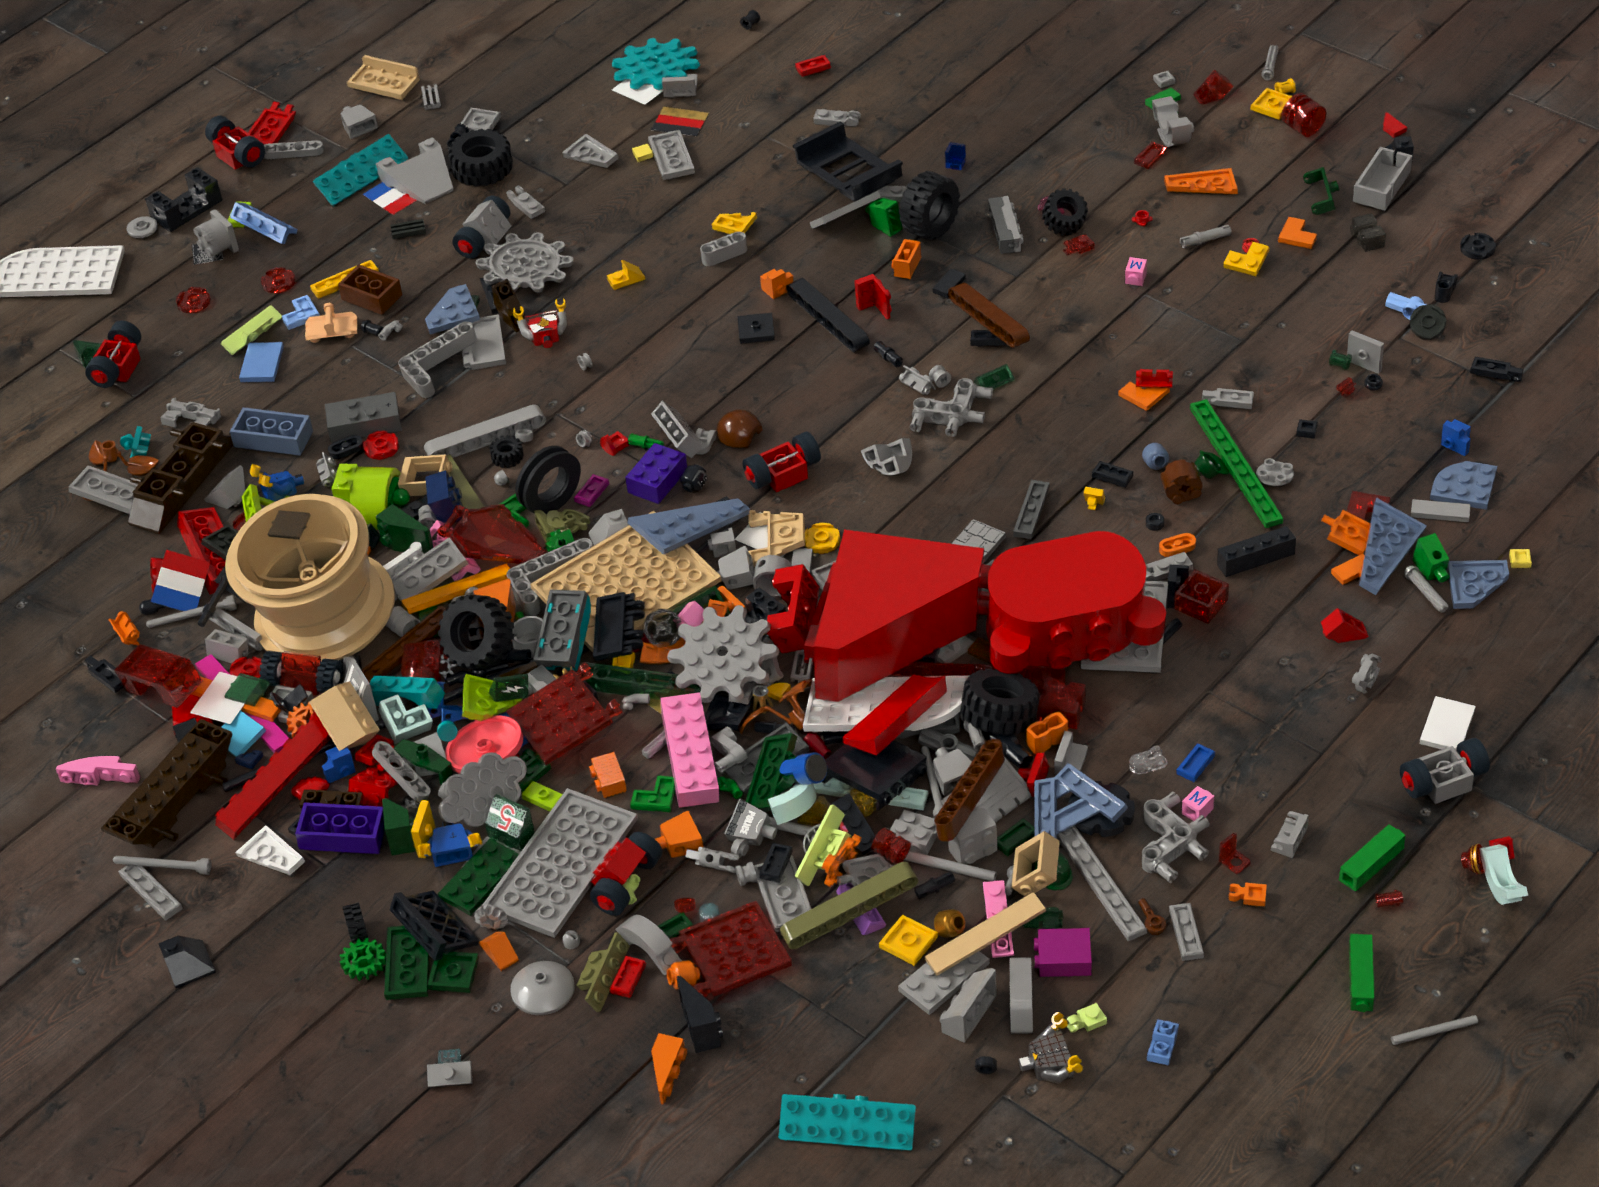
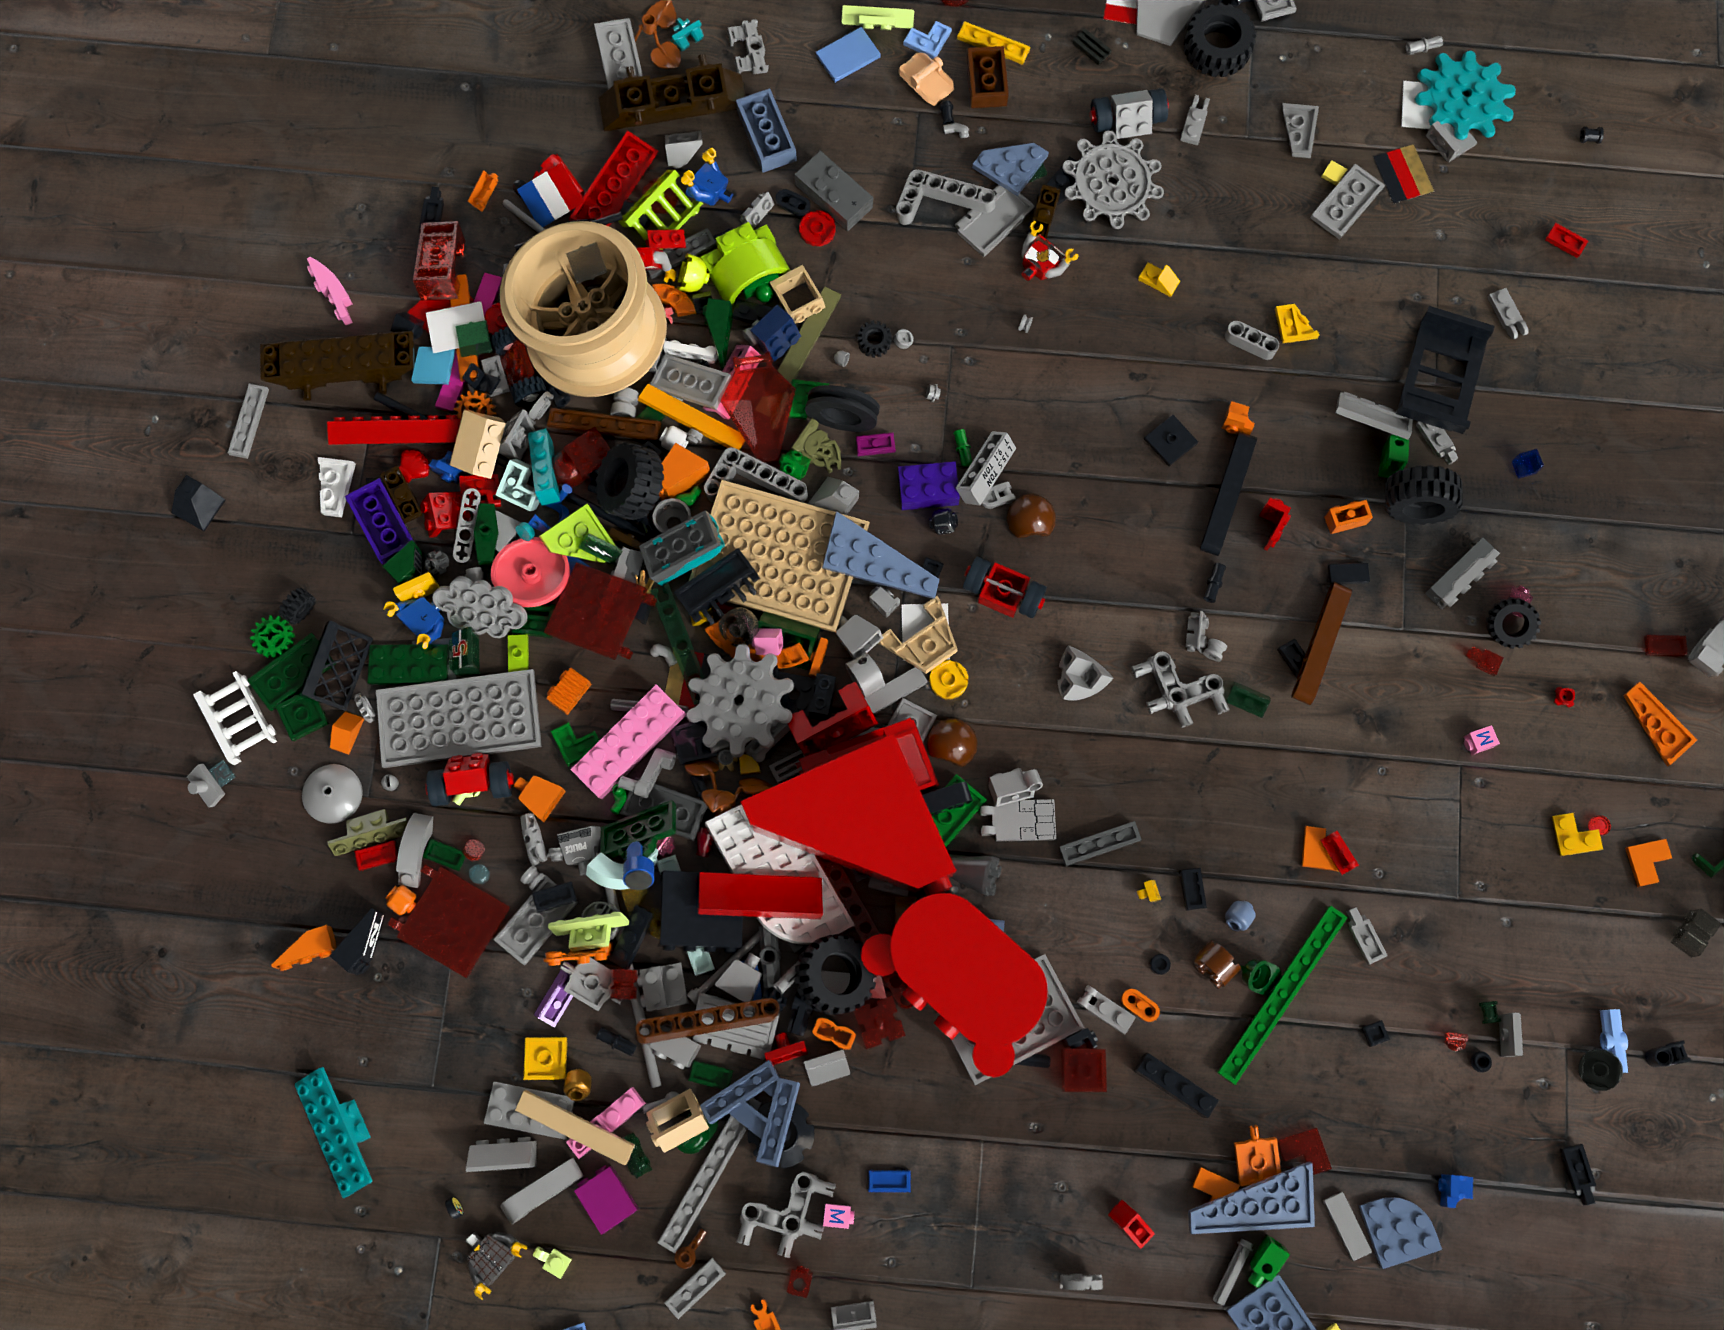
camera: 50 degrees right, 30 degrees up
(202, 866) = (289, 443): light grey piece -> none
(220, 540) = (619, 187): pearl dark grey tile -> none
(249, 760) = (417, 392): dark blue tile -> none
(409, 1039) = (215, 718): none -> white fence
(484, 433) = (883, 305): light grey beam -> none
(596, 66) = (1423, 45): none -> light grey axle
(614, 443) = (946, 421): red tile -> none
(848, 905) = (542, 991): olive beam -> none
(946, 529) = (1014, 786): none -> light grey hinge
(1141, 763) = (857, 1134): clear plate -> none
(1201, 237) = (1581, 775): light grey pin -> none
(1275, 472) = (1293, 1039): light grey dish -> none

